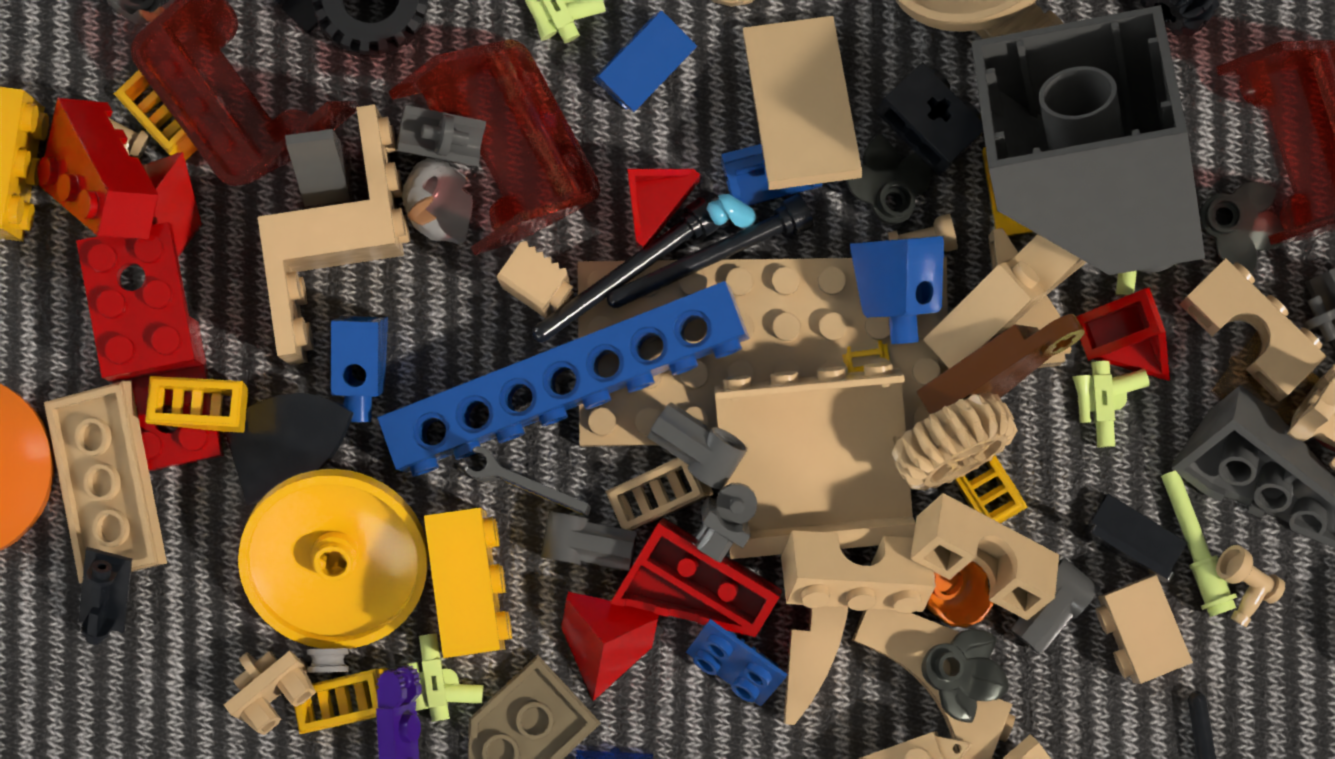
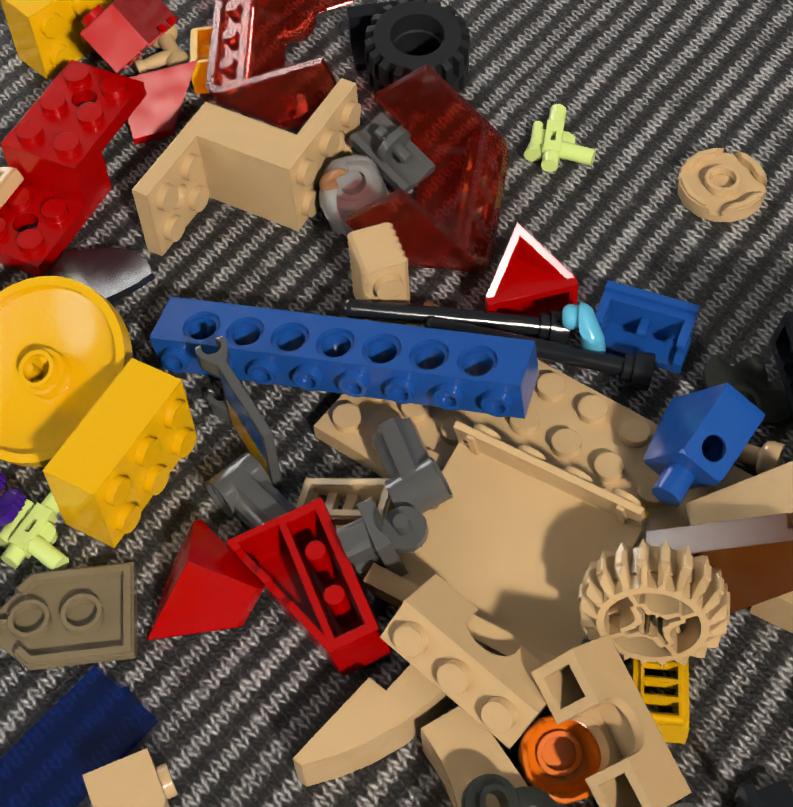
camera: 40 degrees right, 30 degrees down
(214, 422) = (68, 238): yellow slope -> none
(321, 168) = (283, 88): dark grey slope -> none
(364, 343) = (196, 254): blue torso -> none
(645, 62) = (594, 196): blue hinge -> none
(748, 672) = (295, 677): blue hinge -> none
(801, 103) = (705, 285): tan tile -> none

